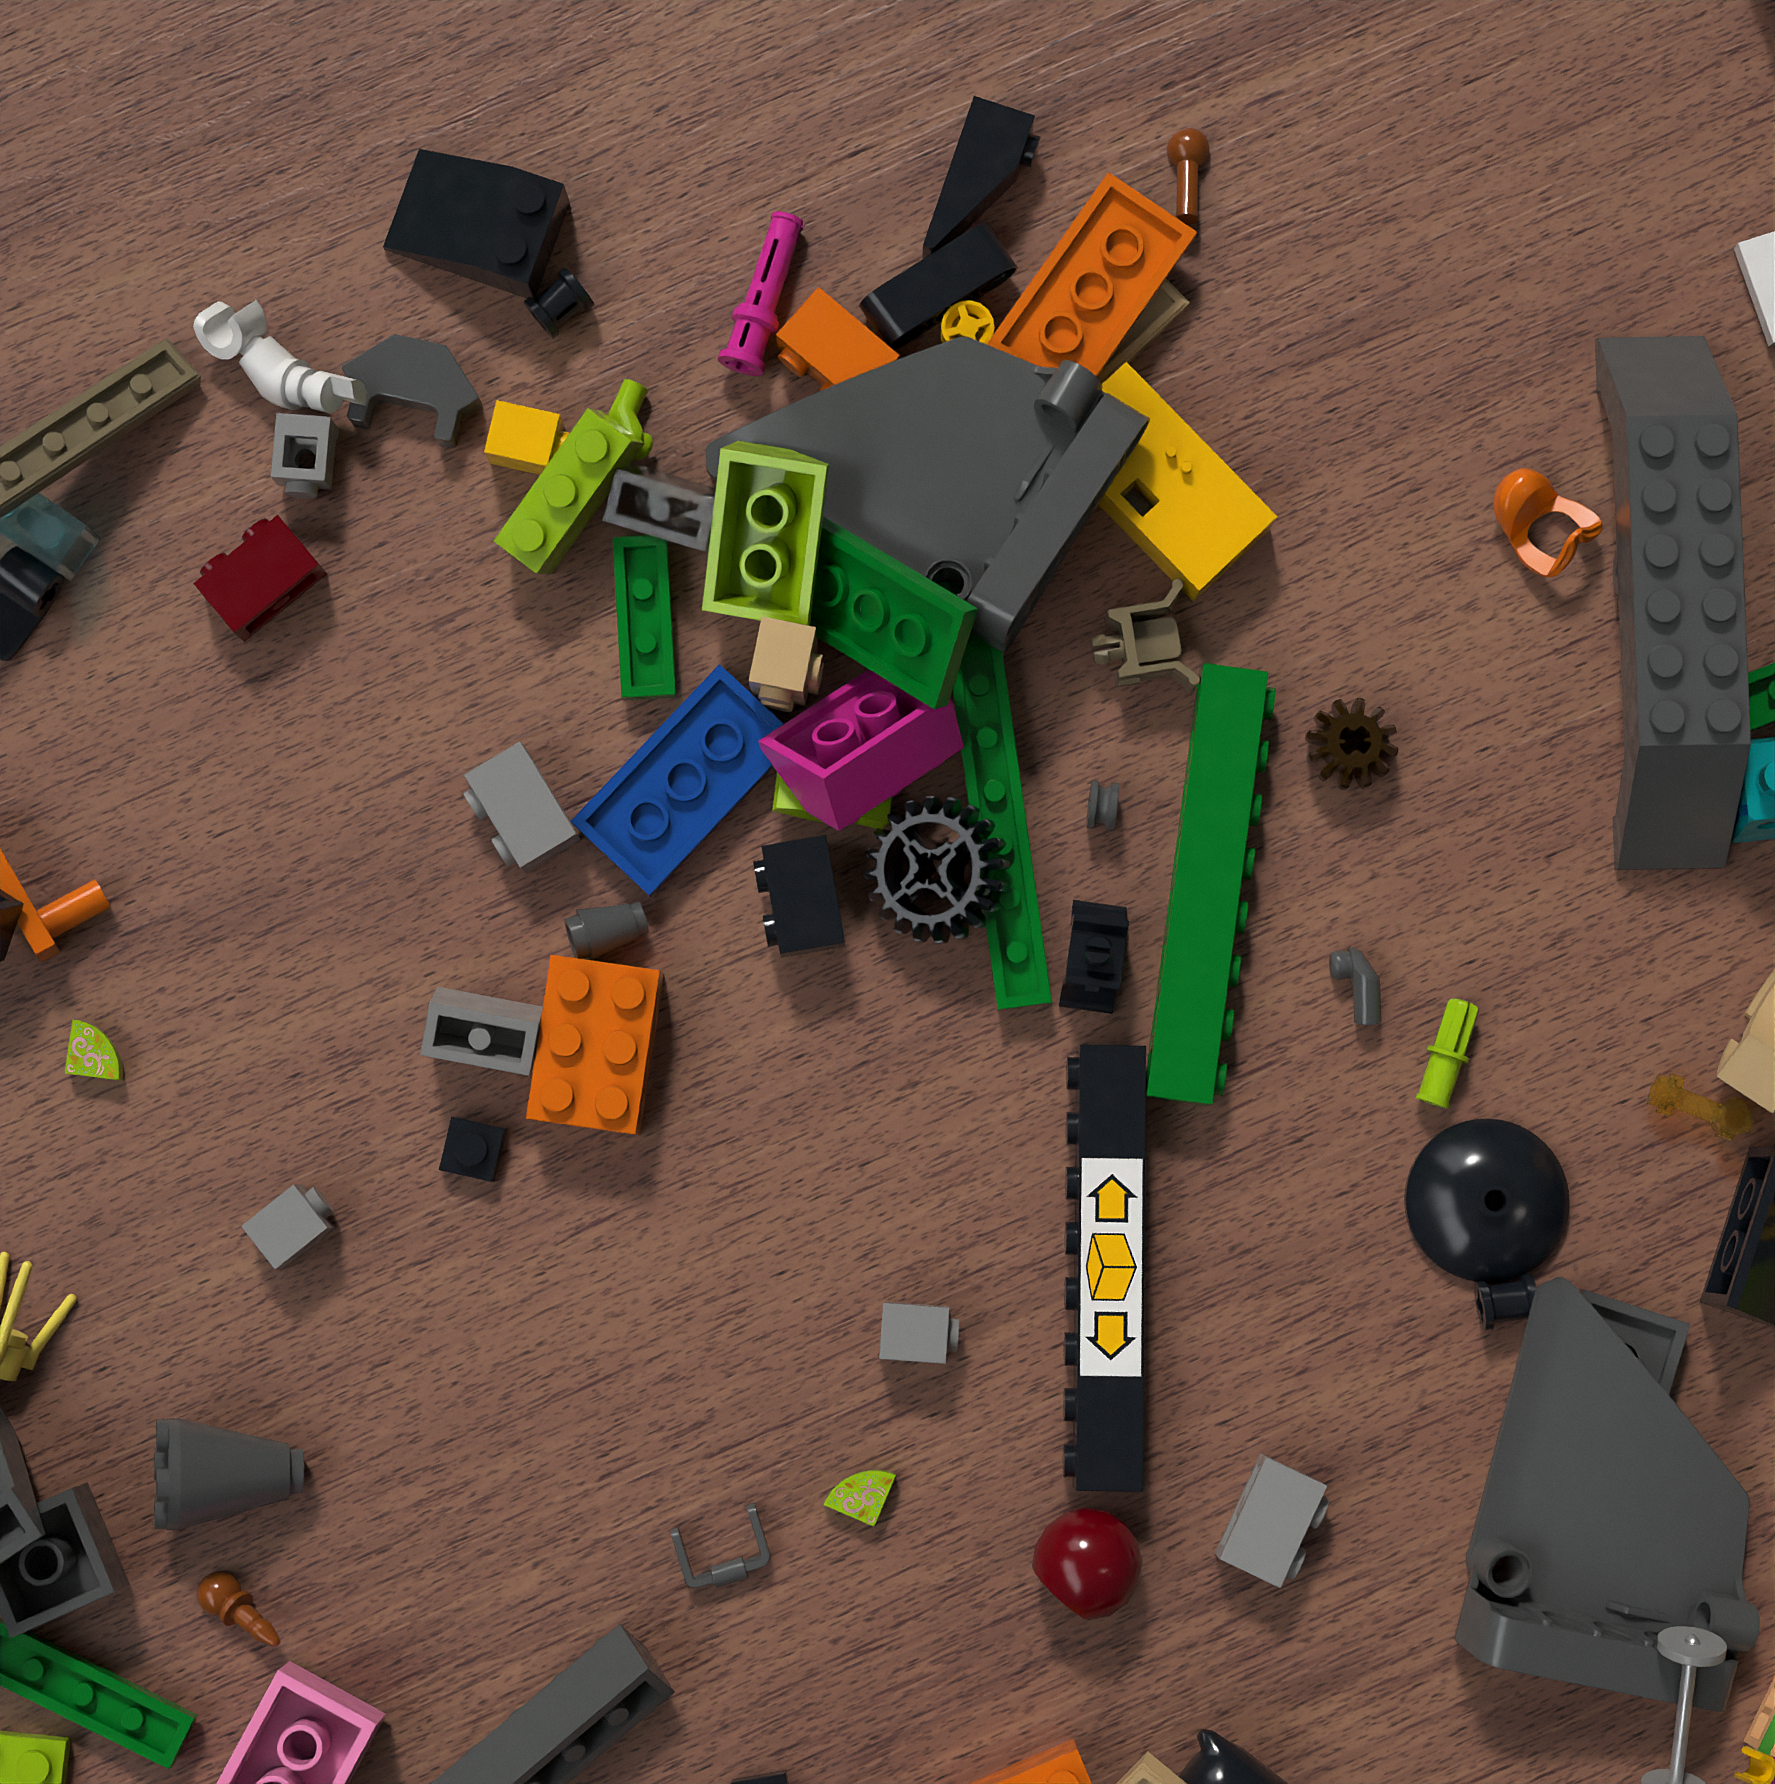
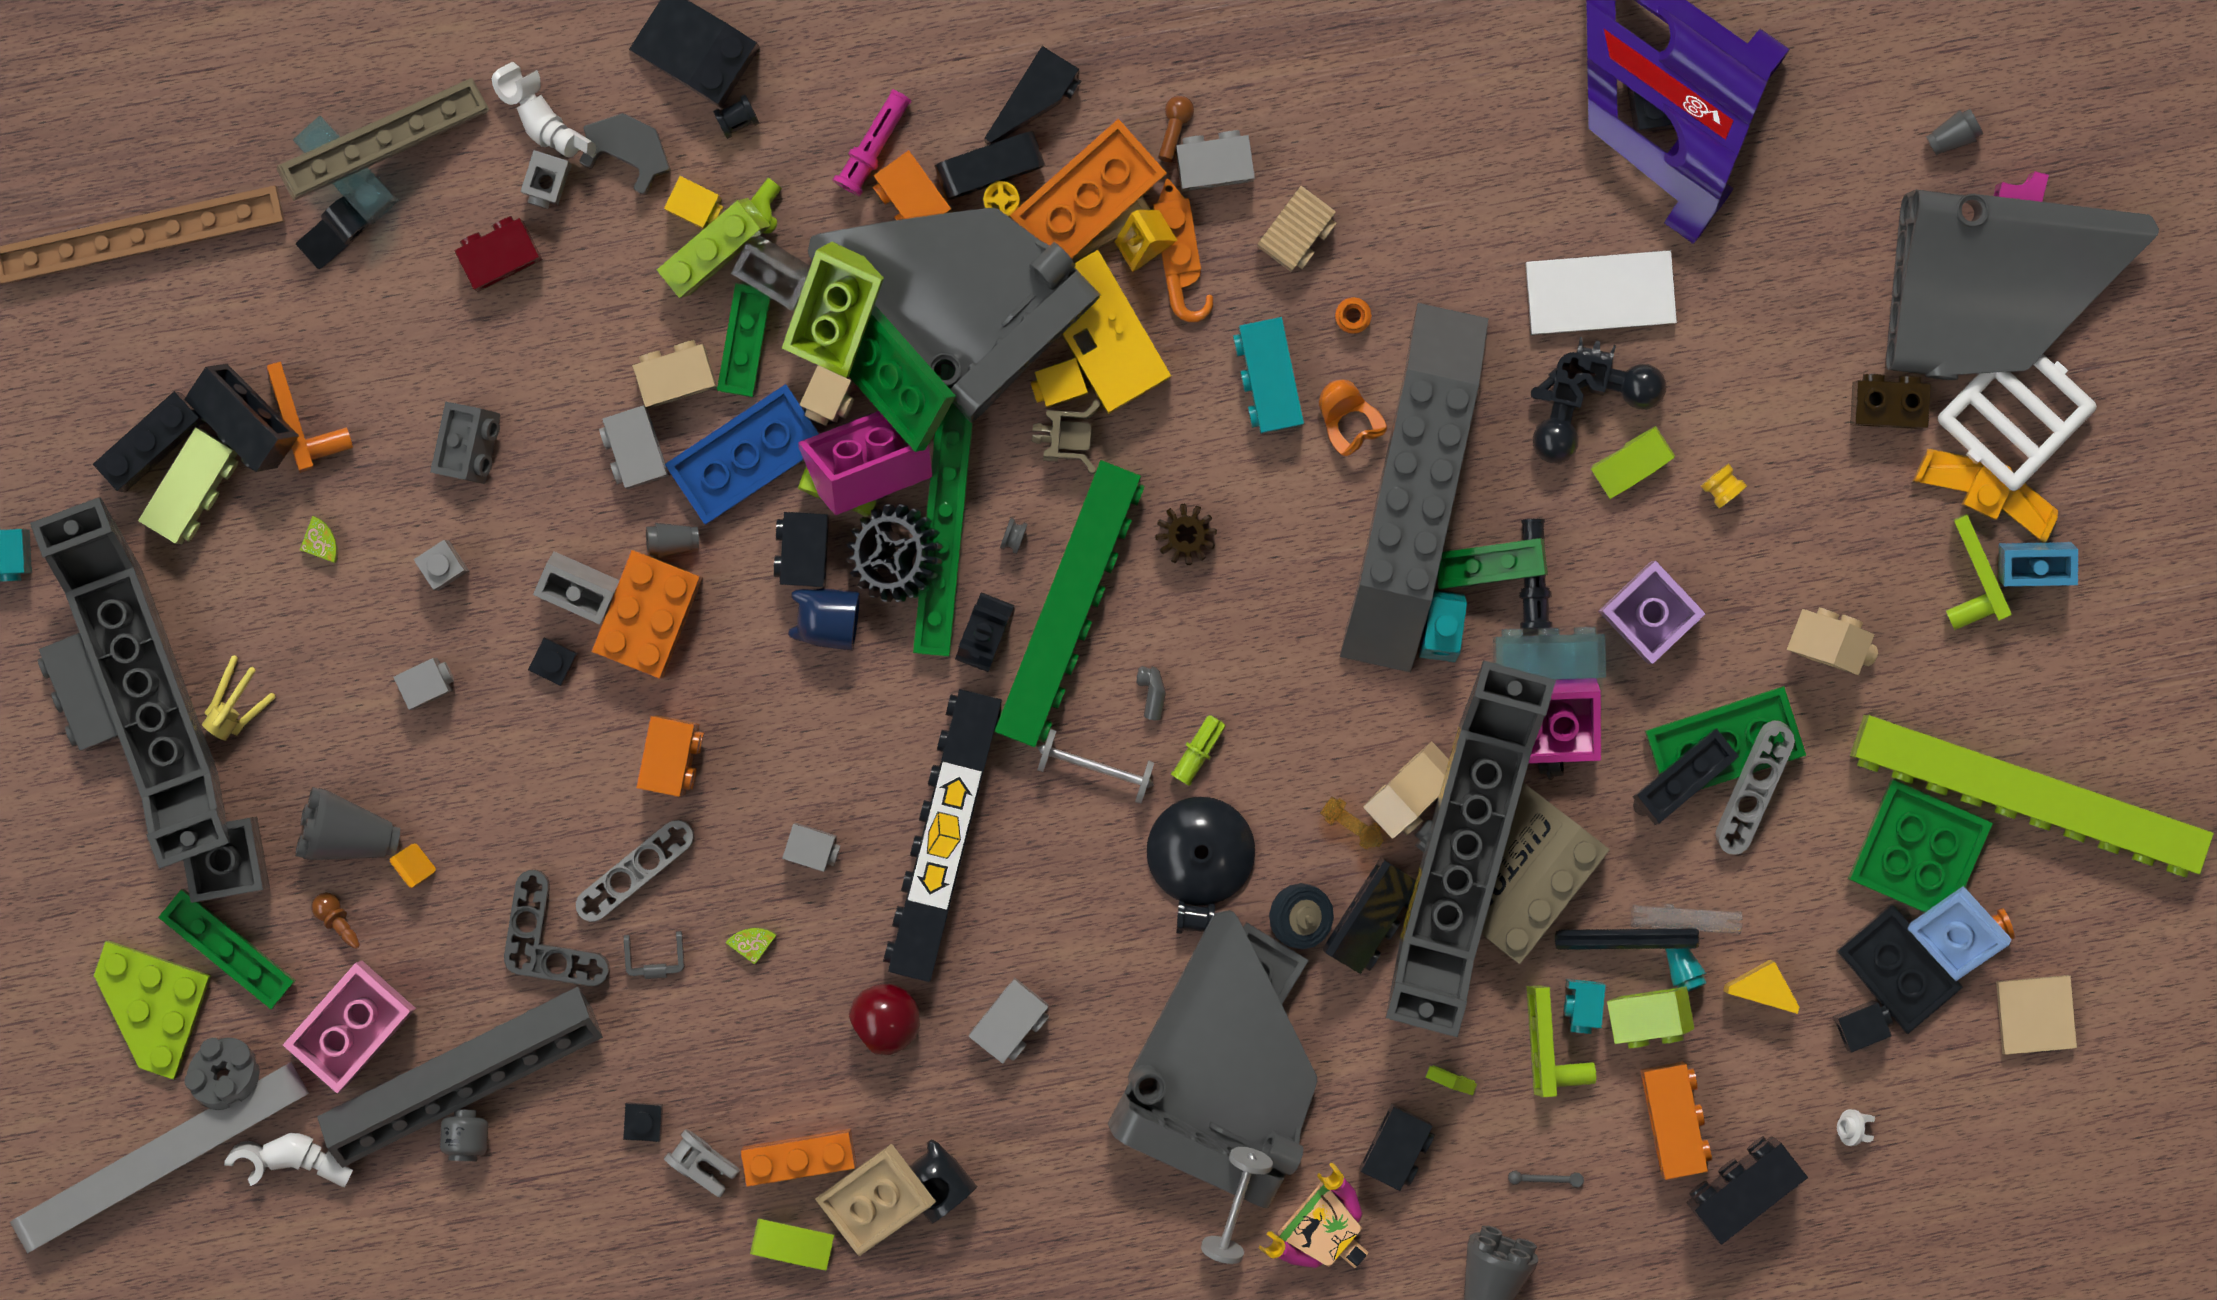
camera: 15 degrees right, 5 degrees up
(273, 859) = (465, 442): none -> dark grey bracket
(276, 1045) = (441, 565): none -> light grey brick
(333, 1500) = (412, 865): none -> light orange slope
(553, 1584) = (540, 952): none -> dark grey beam
(554, 689) = (675, 374): none -> tan brick
(661, 1426) = (633, 868): none -> light grey beam
(676, 1246) = (669, 756): none -> orange brick
(858, 988) = (826, 617): none -> dark blue piece
(1115, 571) = (1059, 383): none -> yellow brick
(1184, 335) = (1144, 237): none -> yellow slope
(1237, 344) = (1182, 258): none -> orange plate
(1259, 205) = (1214, 162): none -> light grey brick
(1381, 1117) = (1144, 782): none -> flat silver axle
(1400, 273) = (1296, 230): none -> tan brick
(1414, 488) = (1268, 375): none -> teal brick
(1521, 366) = (1359, 305): none -> orange plate
(1662, 1260) = (1301, 916): none -> black wheel

